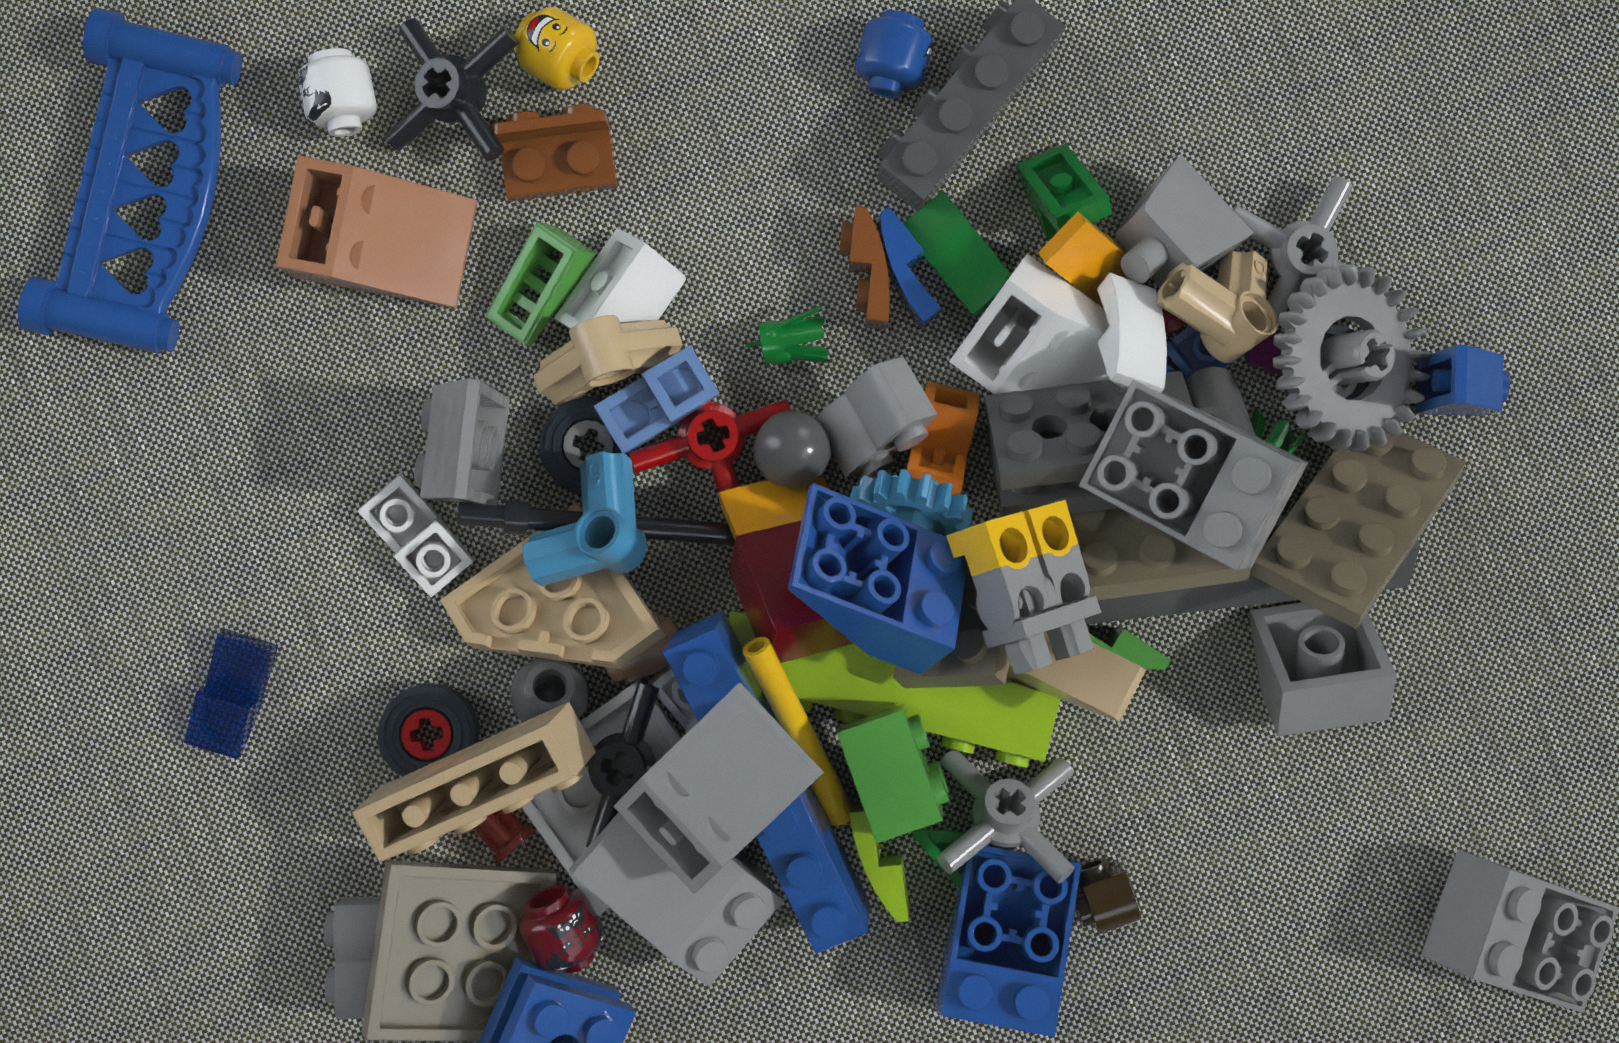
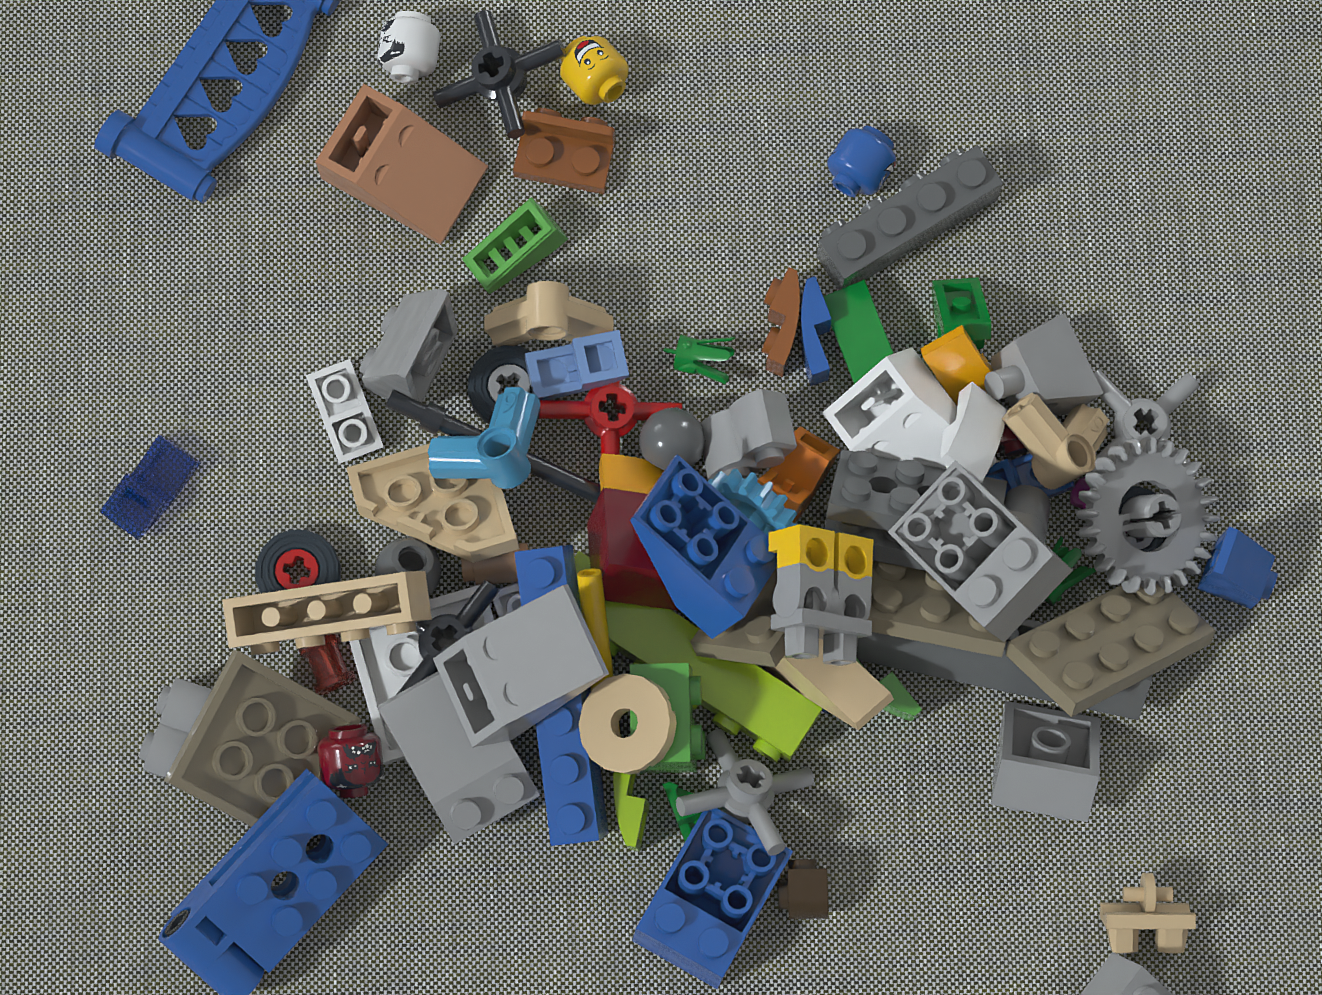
camera: 20 degrees right, 10 degrees down
(624, 282) = (586, 265): white panel -> none
(842, 832) = (601, 718): none -> tan tile
(1483, 794) = (1168, 919): none -> tan hips

